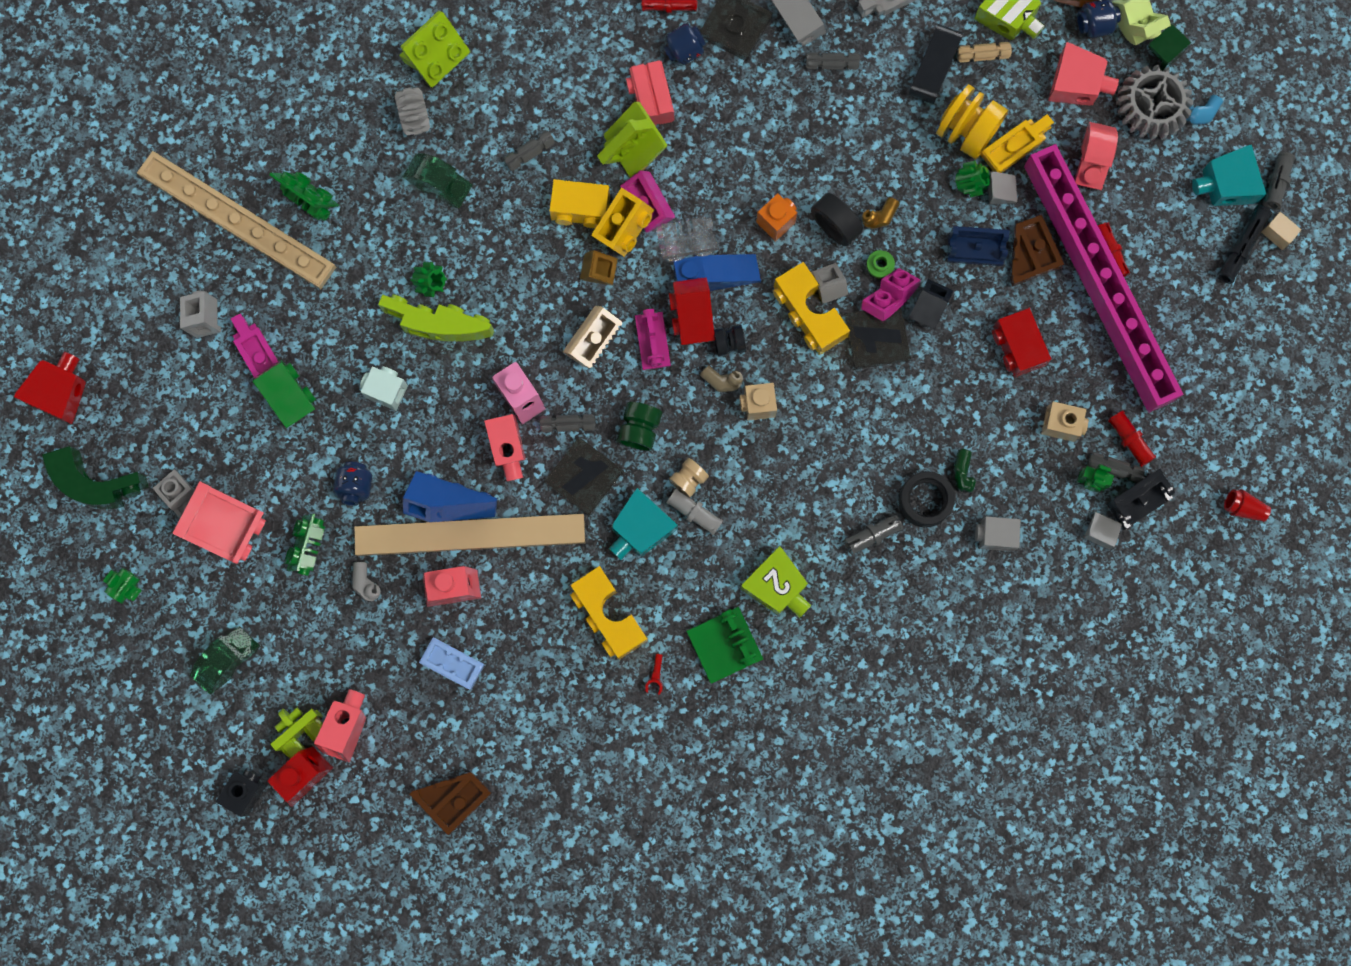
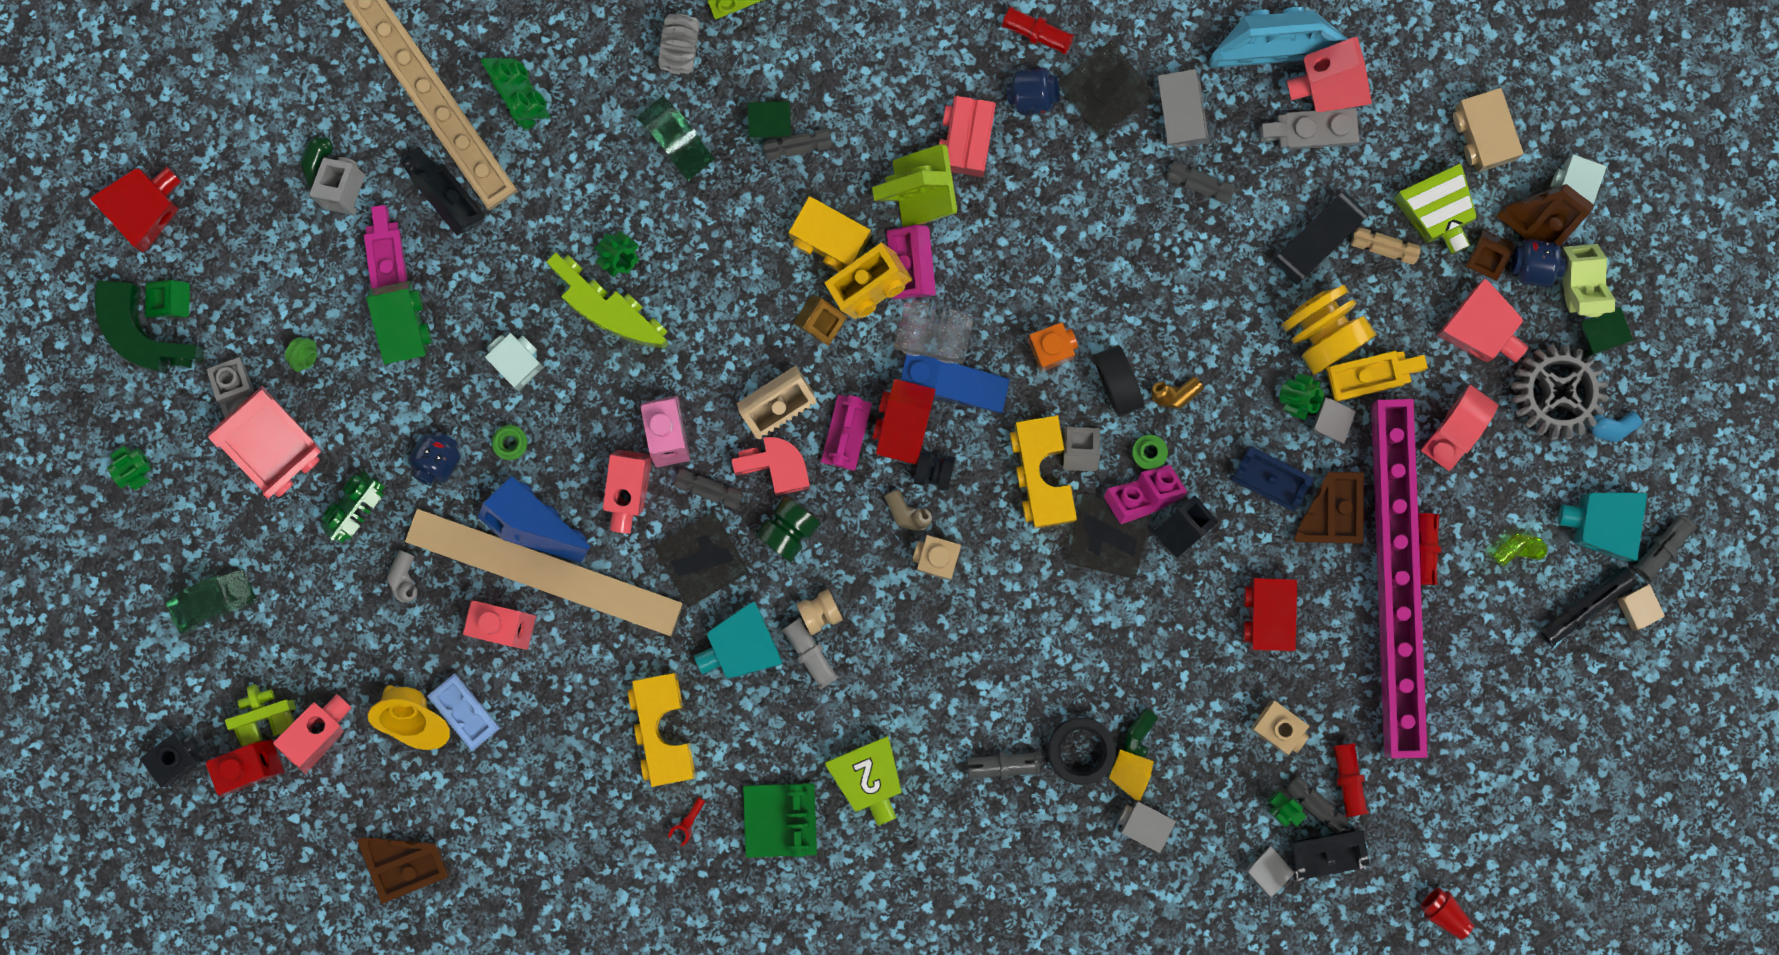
camera: 25 degrees right, 5 degrees up
(102, 450) = (167, 299): none -> green slope
(172, 301) = (312, 156): none -> dark green arm
(220, 448) = (301, 354): none -> bright green plate
(280, 287) = (443, 192): none -> black hinge
(403, 441) = (505, 432): none -> bright green plate
(411, 686) = (406, 717): none -> yellow piece
(500, 139) = (768, 120): none -> dark green panel
(613, 378) = (783, 460): none -> coral brick
(971, 500) = (1131, 773): none -> yellow slope
(1060, 29) = (1490, 255): none -> reddish brown slope
(1177, 221) = (1520, 545): none -> clear neon green arm

